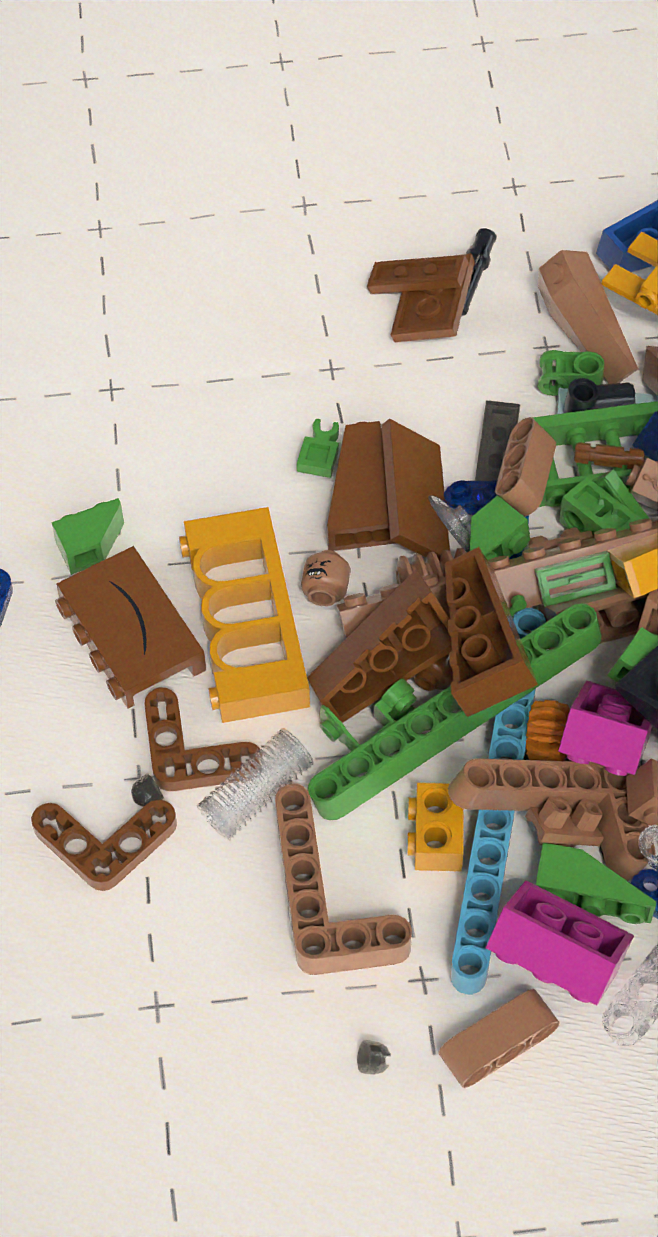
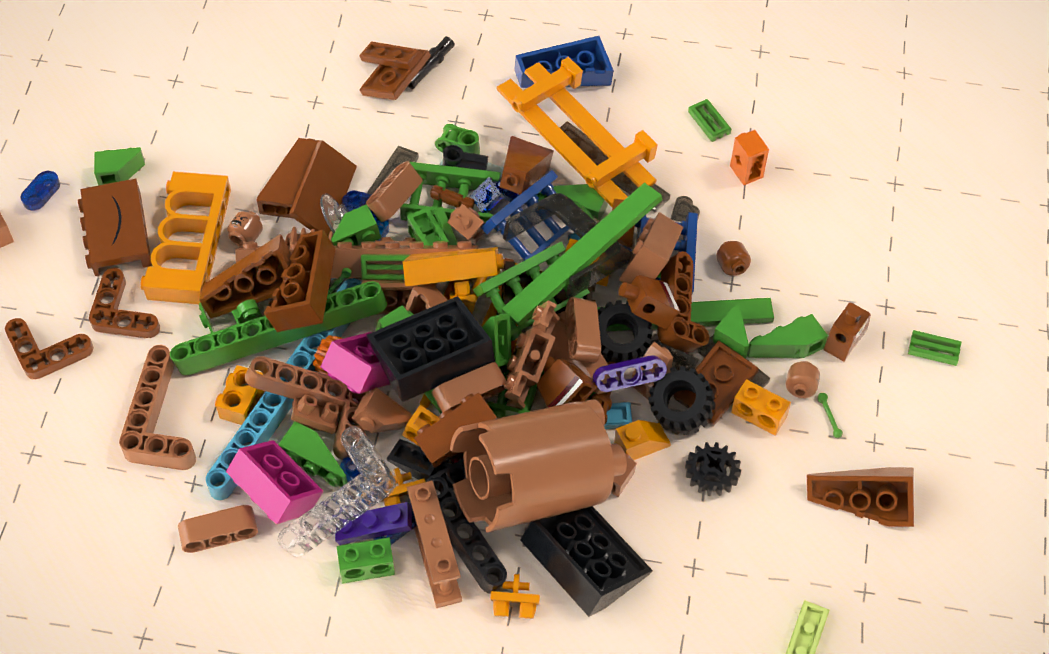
camera: 15 degrees right, 0 degrees up
(145, 791) = (80, 326): clear smoke hinge -> none
(226, 818) = (112, 354): clear piece -> none
(320, 452) = (278, 150): bright green plate -> none
(372, 1057) = (138, 517): clear smoke hinge -> none
(584, 312) = (480, 95): nougat wedge -> none

